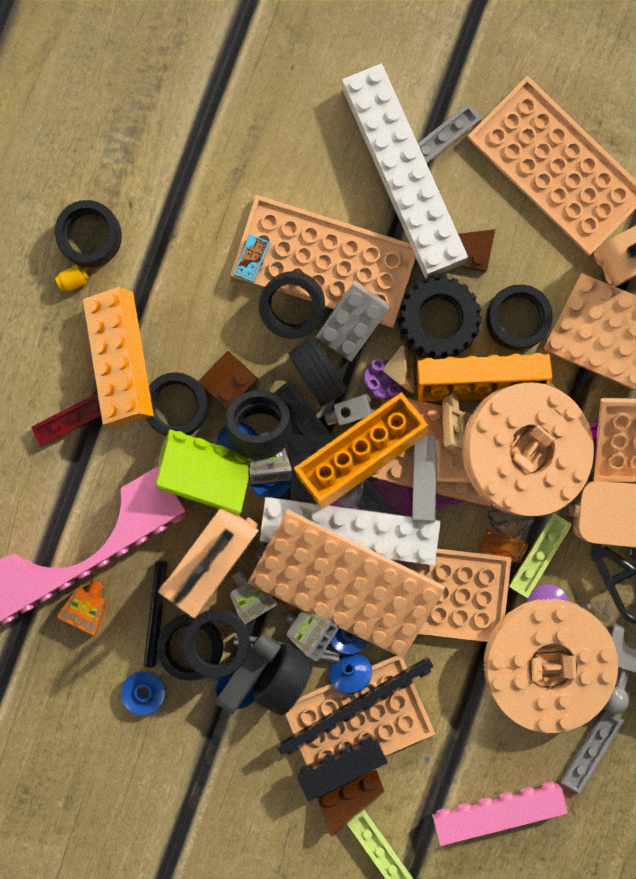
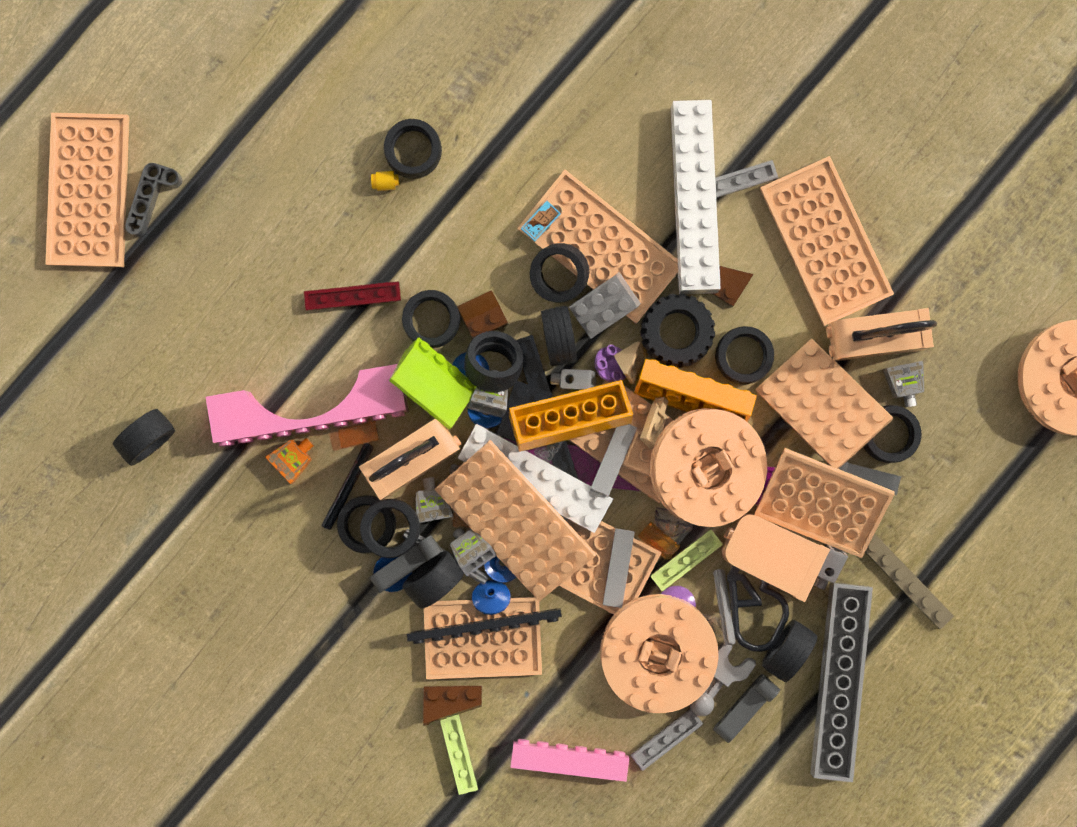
camera: 15 degrees right, 0 degrees up
(118, 357) = (398, 261): light orange brick -> none
(135, 700) = (305, 554): blue dish -> none
(146, 555) = (358, 434): none -> clear orange tile
(341, 768) = (453, 672): black brick -> none
(472, 591) = (618, 568): none -> light grey tile
(599, 590) = (724, 607): none -> light grey axle

